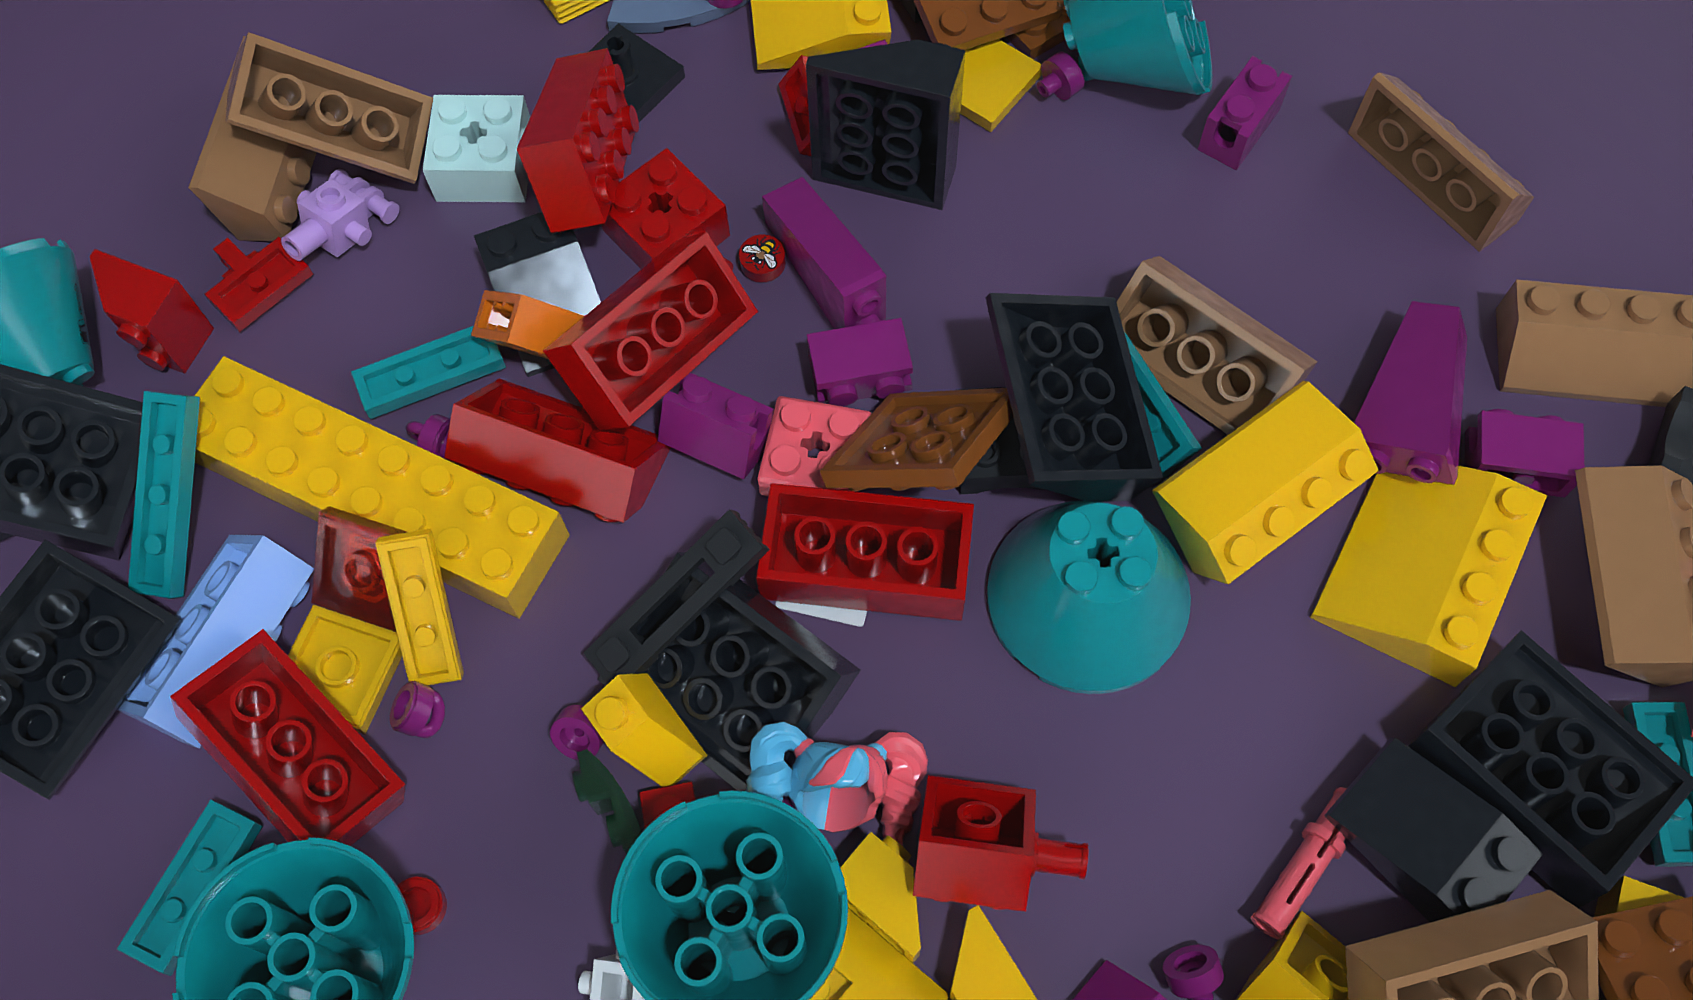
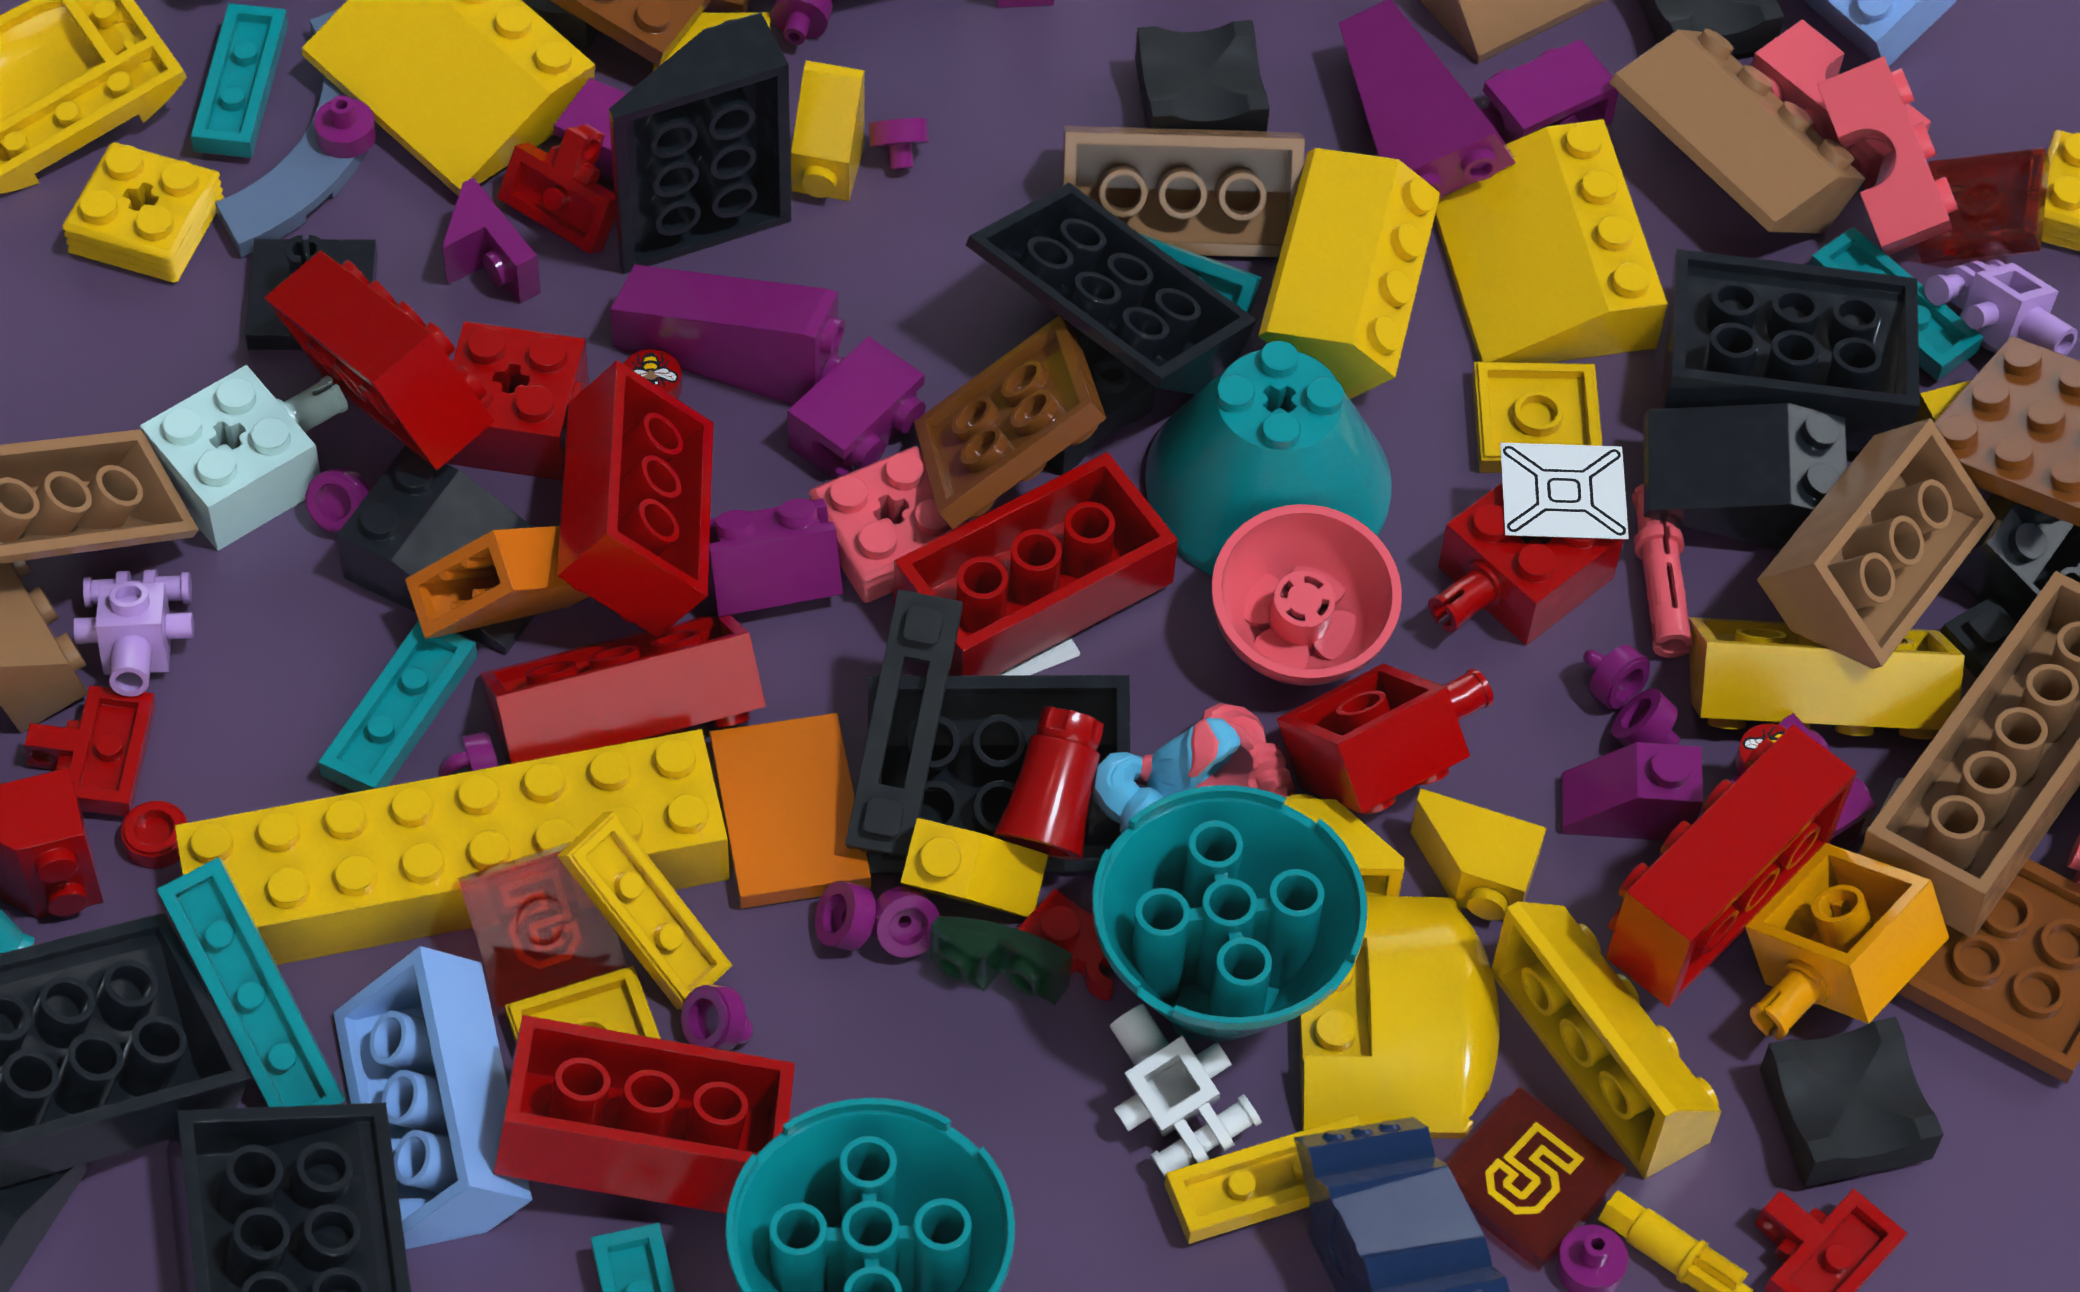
camera: 45 degrees left, 10 degrees down
(243, 347) = (151, 834): none -> red tile
(513, 207) = (335, 497): none -> magenta tile
(548, 700) = (845, 915): none -> magenta tile
(582, 596) = (787, 808): none -> orange tile
(728, 718) = (1054, 786): none -> red plant
(737, 103) = (485, 238): none -> magenta slope
(1000, 165) = (828, 131): none -> yellow slope
(1030, 674) = (1319, 571): none -> coral piece
(1049, 196) = (898, 137): none -> magenta tile
(1199, 805) = (1517, 579): none -> red brick
(1204, 921) = (1617, 675): none -> magenta tile
(1269, 760) = (1564, 491): none -> white sticker
(1283, 283) = (1201, 78): none -> black brick
(1318, 680) = (1533, 406): none -> yellow tile

